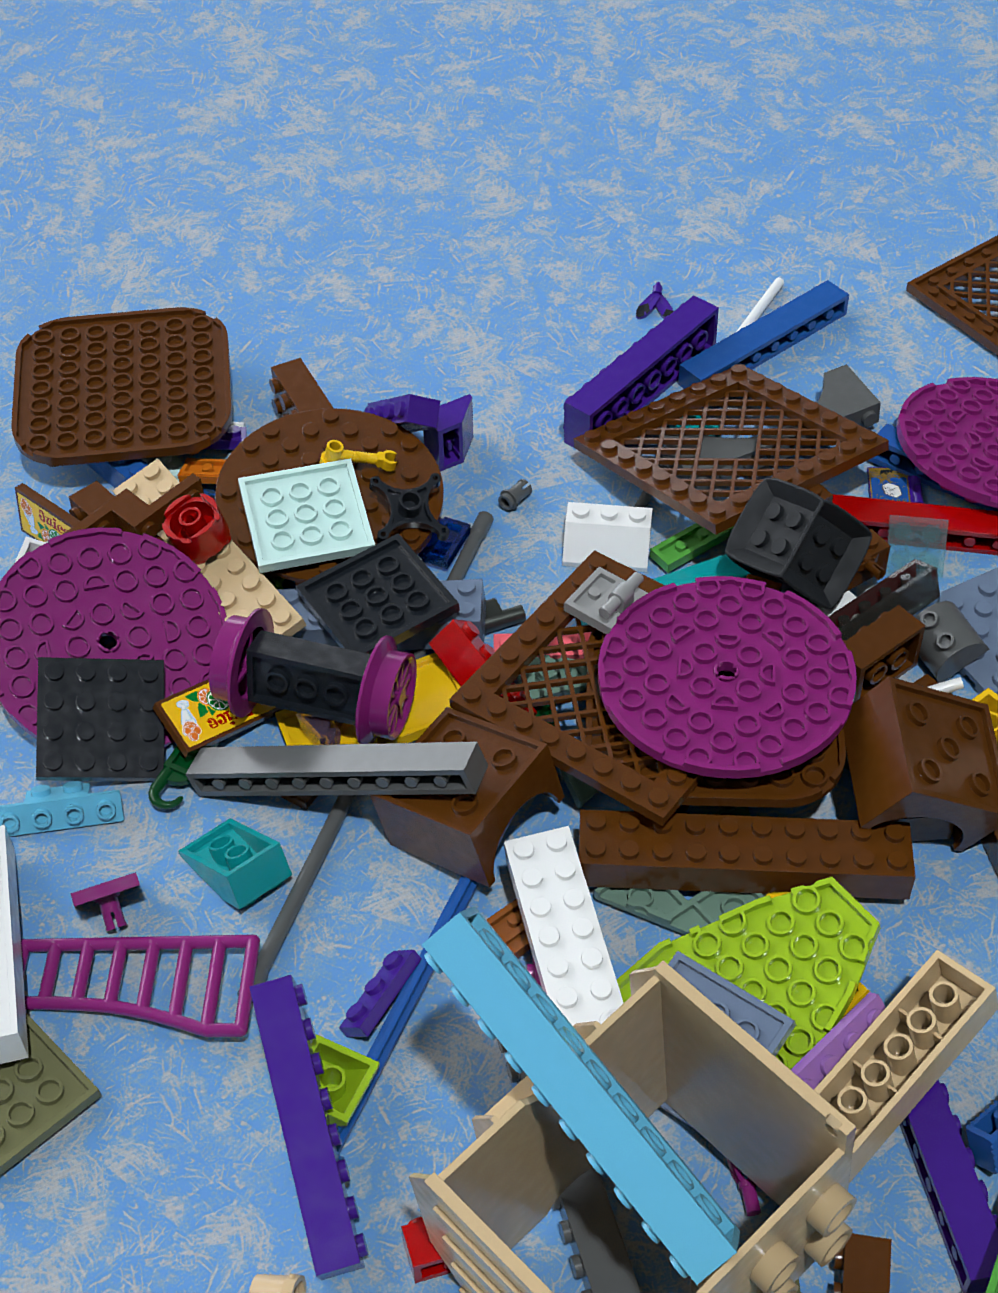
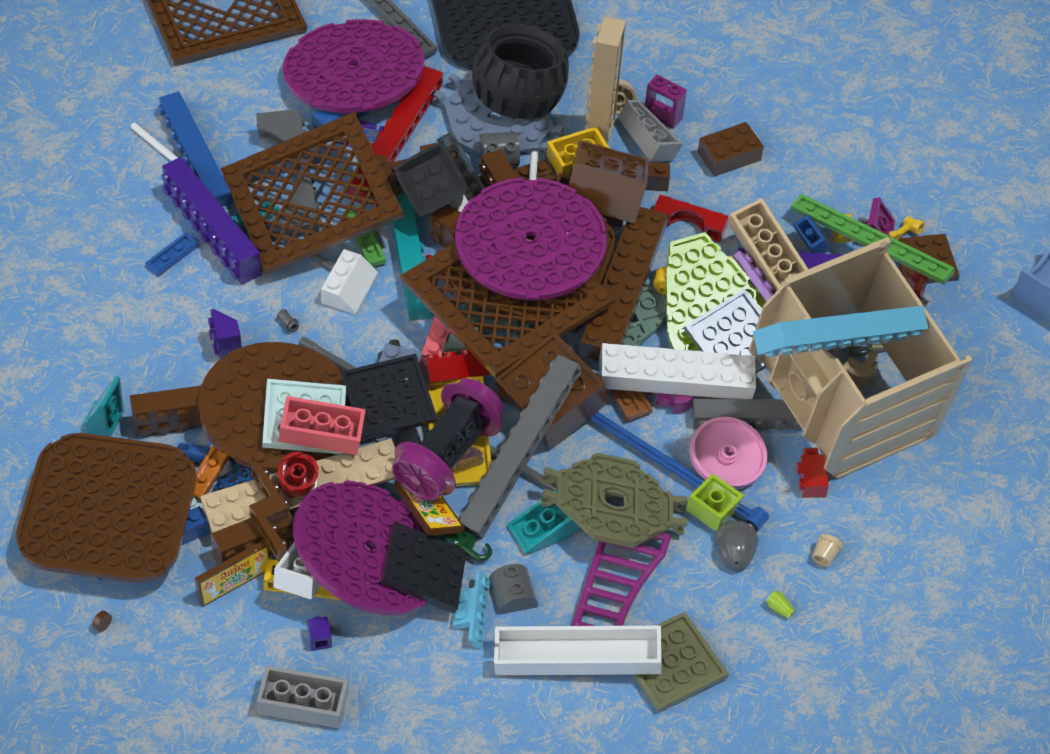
camera: 80 degrees left, 5 degrees up
(105, 850) = (512, 589): none -> dark grey brick
(106, 896) = (553, 587): magenta tile -> none
(146, 1241) = (780, 604): none -> lime cone
(249, 1145) = (736, 544): none -> dark grey piece
(273, 521) = (321, 425): none -> coral brick
(280, 877) = (645, 507): none -> olive plate
(282, 343) = (106, 410): none -> teal slope
(307, 1128) = (744, 508): dark purple brick -> none
(335, 452) = (259, 389): yellow brick -> none
(379, 993) = (667, 478): dark purple plate -> none
(408, 411) = (218, 346): dark purple brick -> none
(409, 508) = (317, 361): black piece -> none
(436, 1082) = (729, 451): none -> bright pink dish
(573, 362) = (171, 254): none -> blue tile
(604, 598) = (452, 276): light grey plate -> none
(654, 300) = (124, 197): dark purple piece -> none
(916, 539) = (418, 133): clear light blue plate -> none
(951, 897) = (709, 221): none -> red arch

